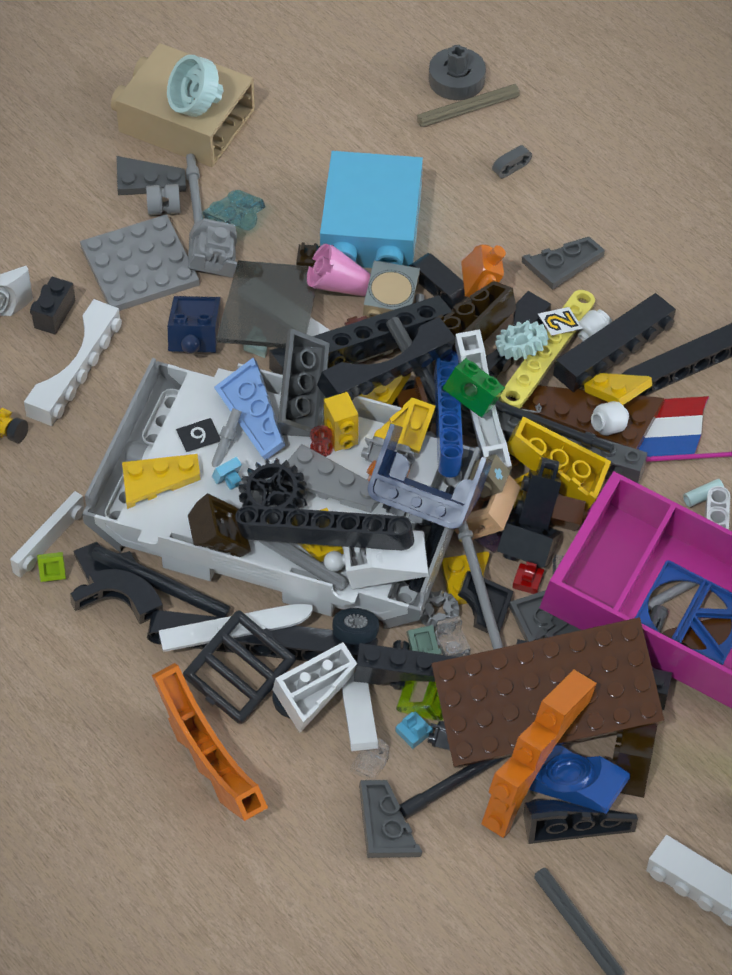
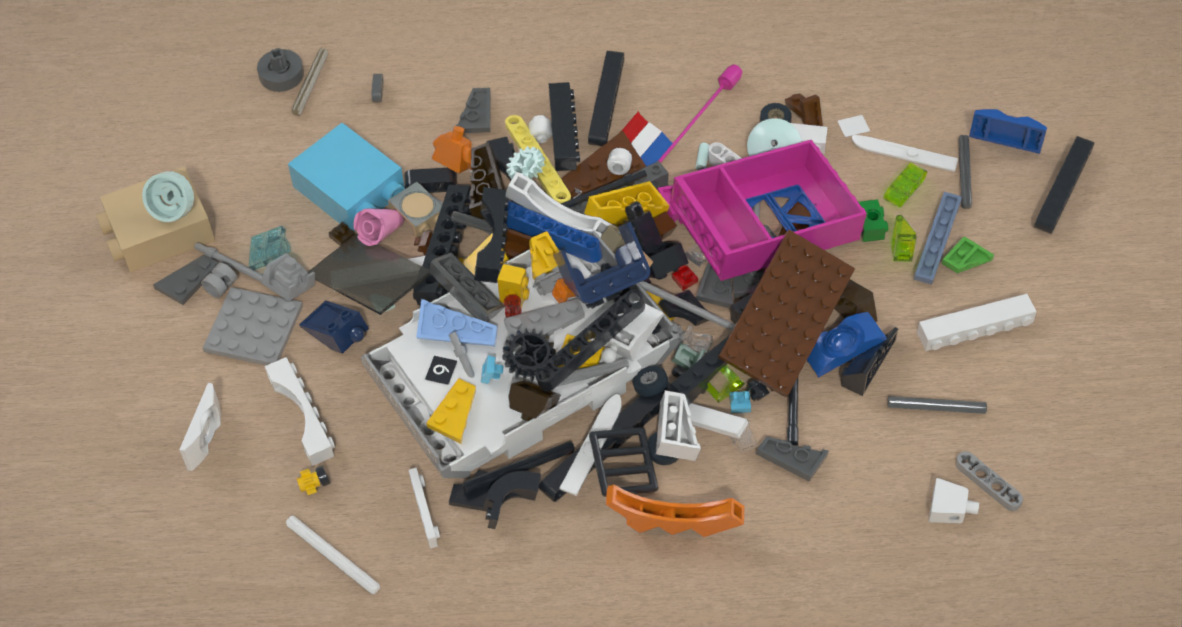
camera: 50 degrees left, 0 degrees up
(51, 566) = (450, 521): lime tile -> none
(53, 305) = (242, 393): black brick -> none
(478, 398) = (559, 208): green brick -> none
(533, 748) = (829, 342): orange arch -> none
(560, 321) = (523, 139): sticker -> none
(617, 386) = (598, 145): yellow wing -> none

